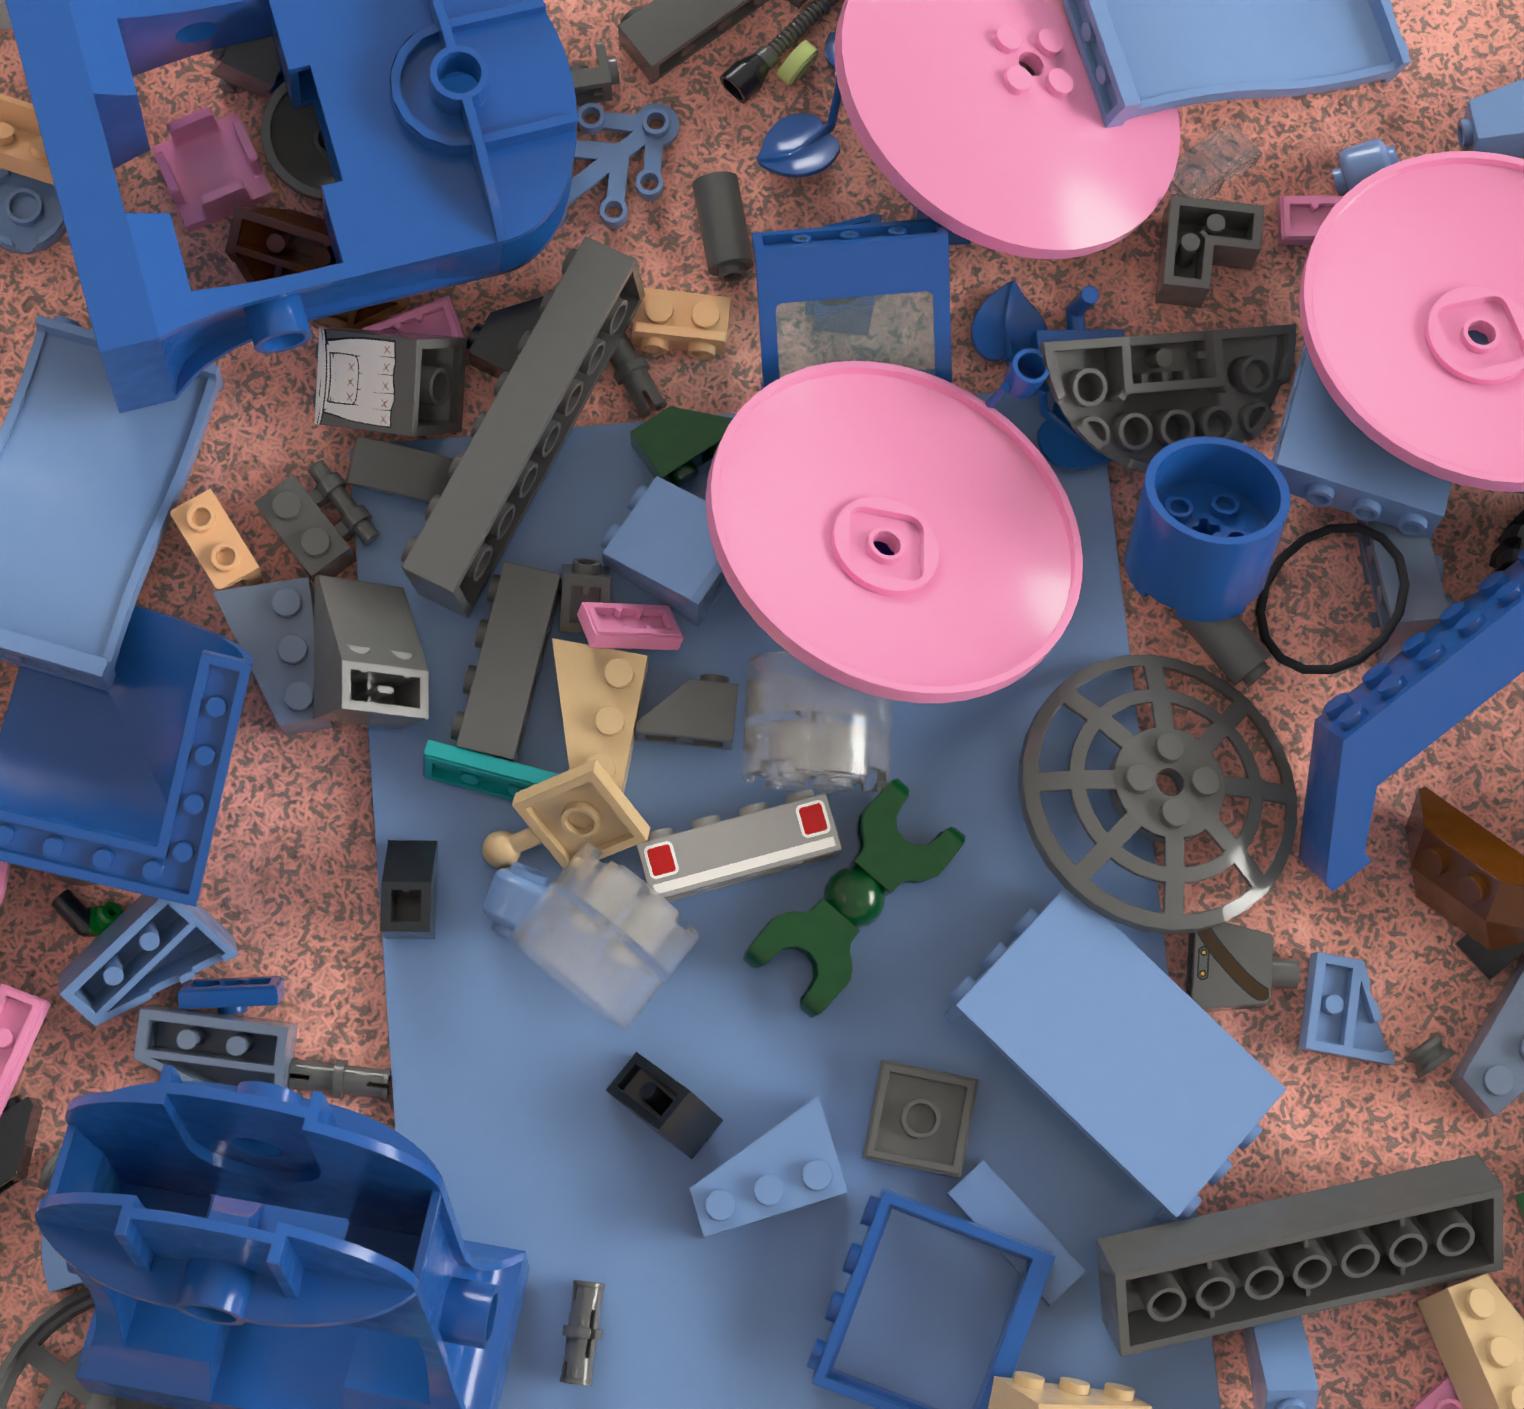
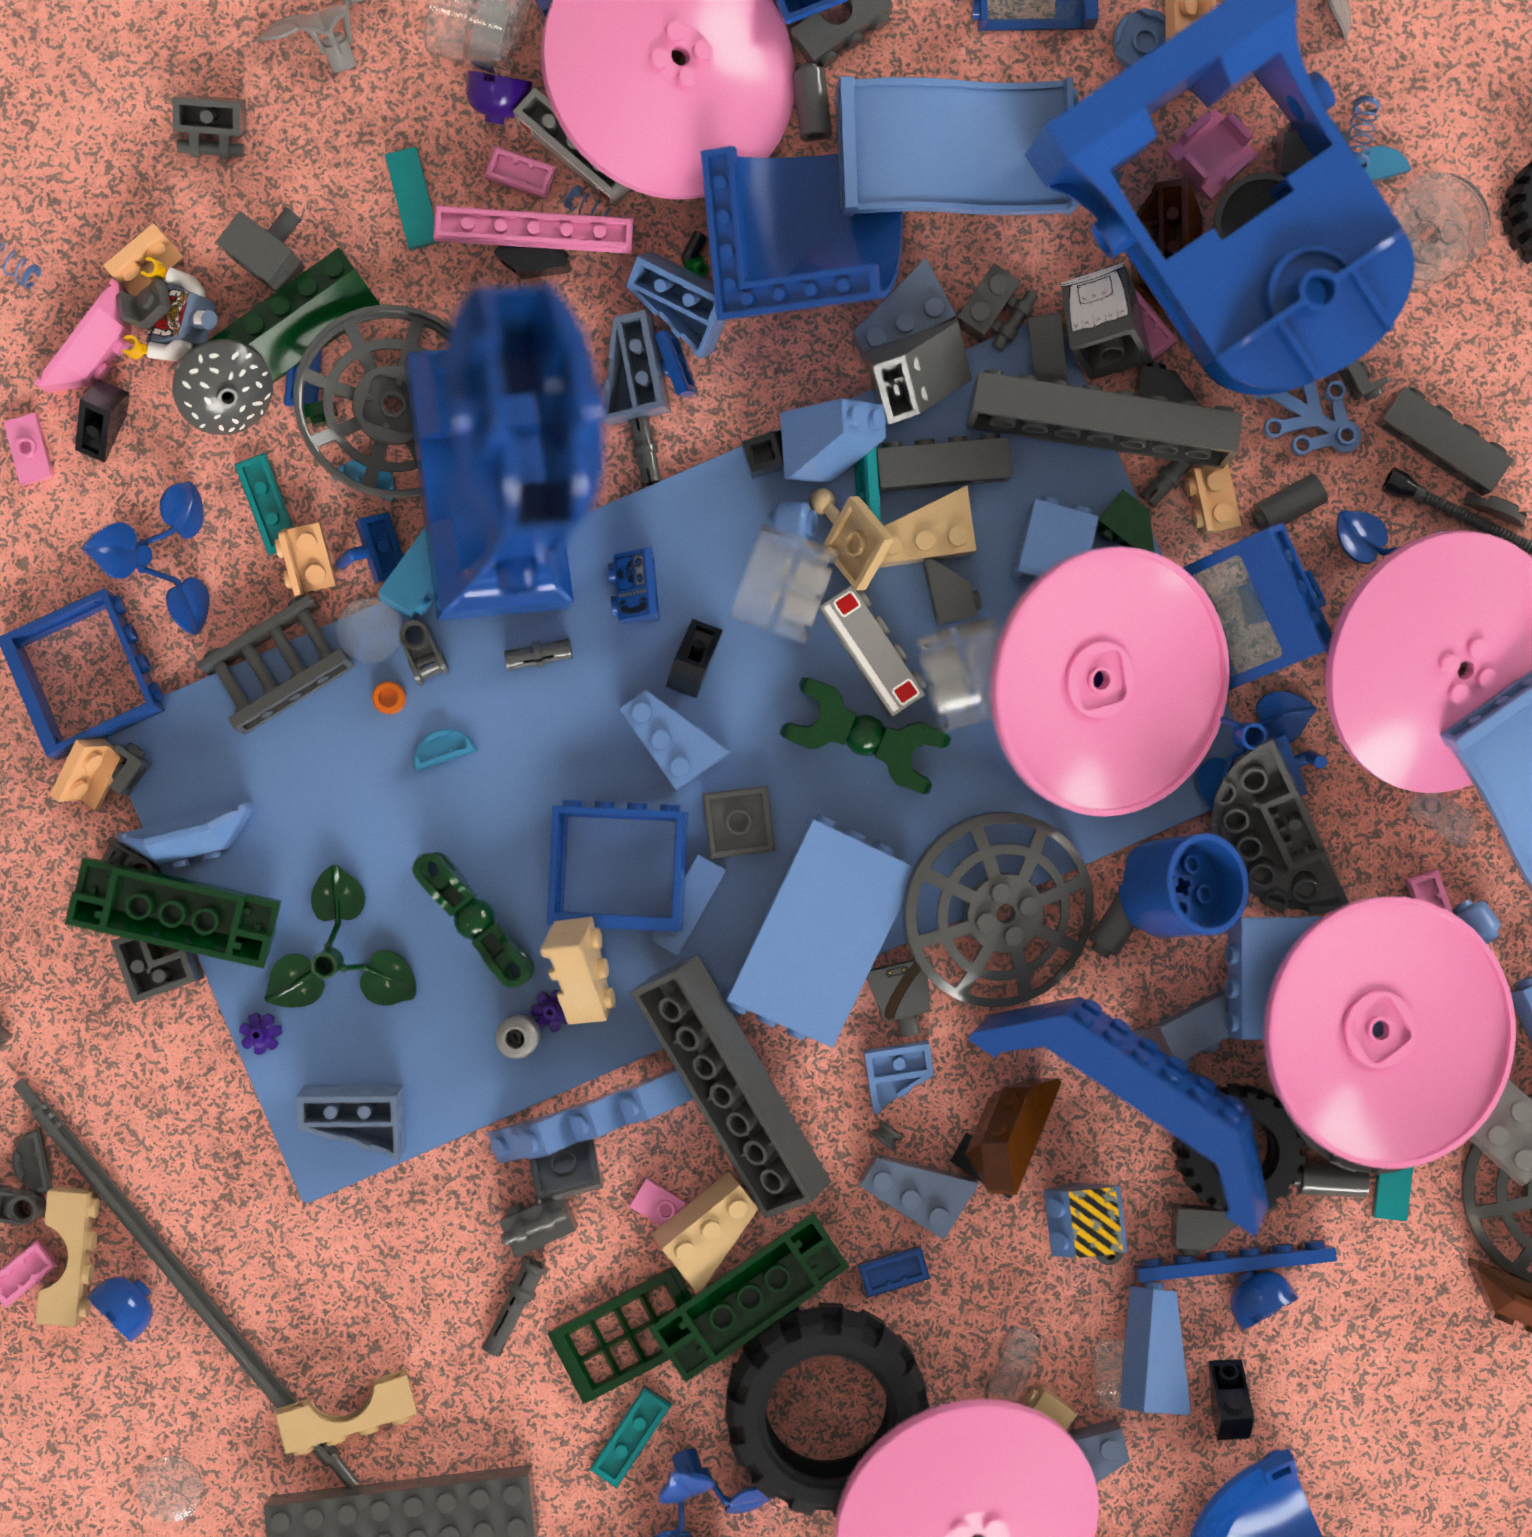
camera: 70 degrees right, 10 degrees up
(216, 542) = (959, 247): light nougat bracket -> none
(419, 805) = (829, 438): none -> medium blue slope
(532, 1155) = (635, 586): none -> blue slope
(581, 582) = (1004, 497): dark grey bracket -> none
(629, 626) = (993, 533): bright pink plate -> none
(797, 63) = (1421, 516): yellowish green tile -> none
(1203, 235) = (1391, 824): dark grey brick -> none
(1371, 648) = (1175, 1028): black piece -> none

